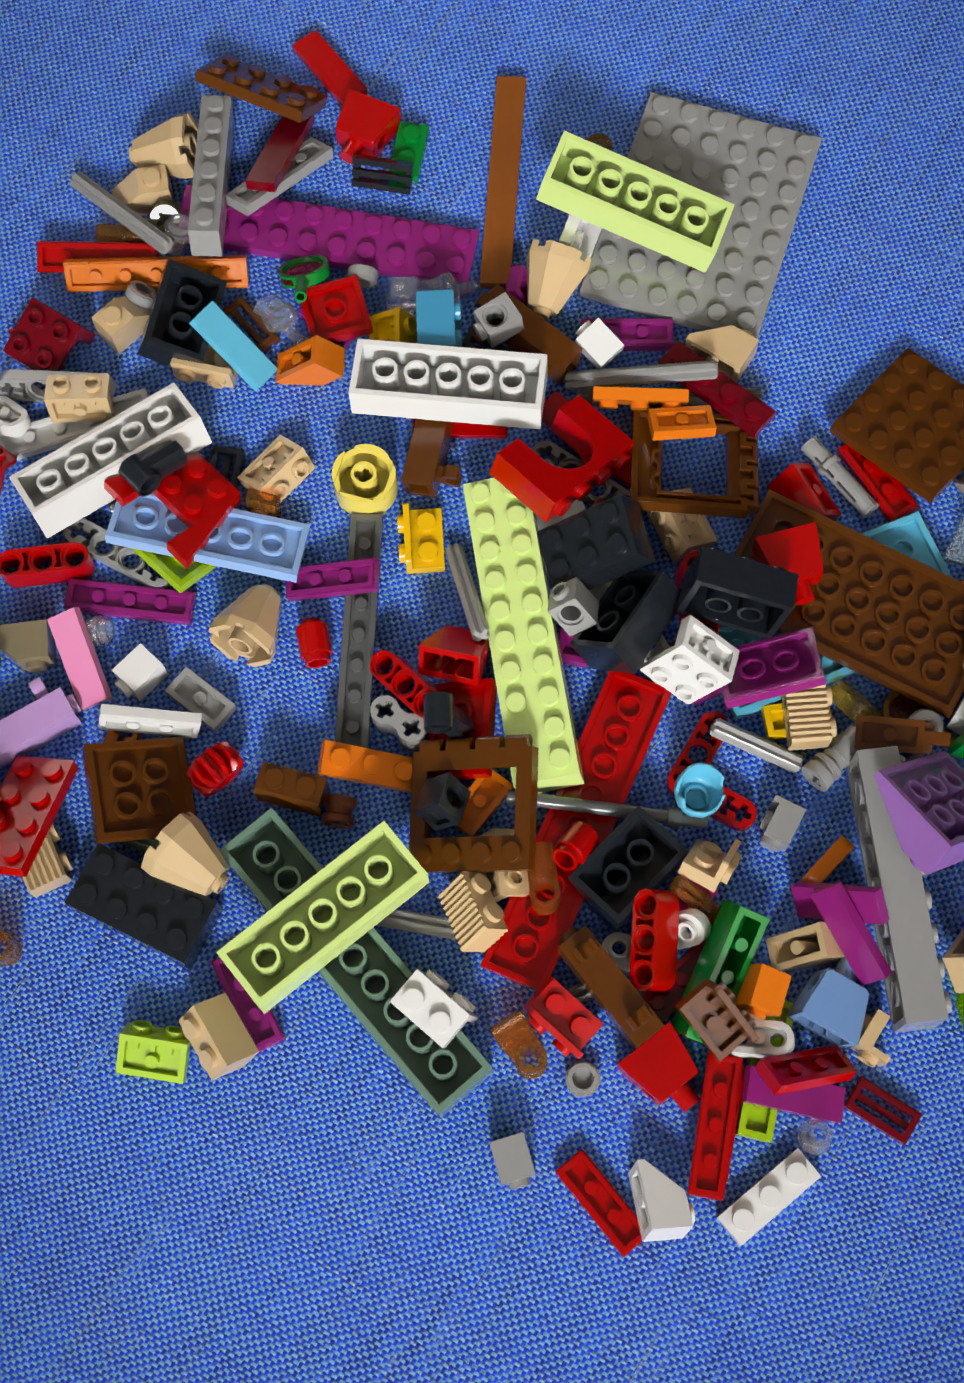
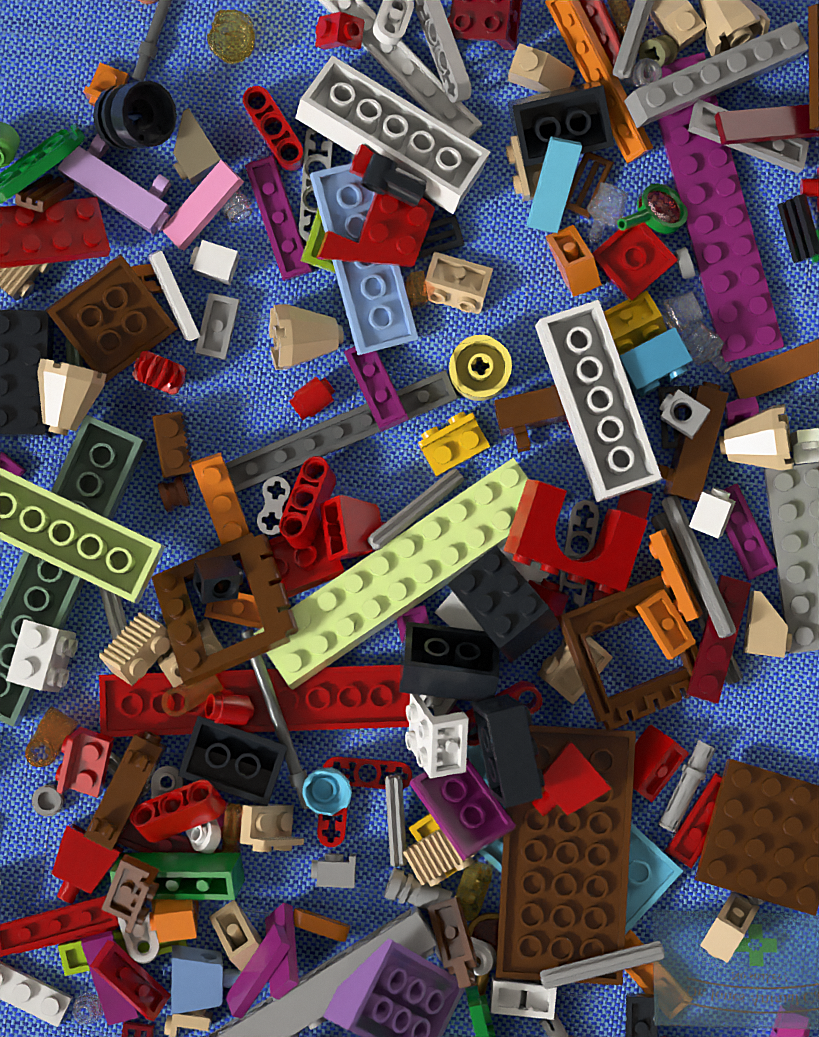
camera: 65 degrees right, 15 degrees up
(79, 397) = (438, 74): tan bracket -> none
(140, 294) = (569, 71): light grey tile -> none
(445, 717) = (285, 549): black piece -> none
(573, 606) = (439, 610): light grey brick -> none

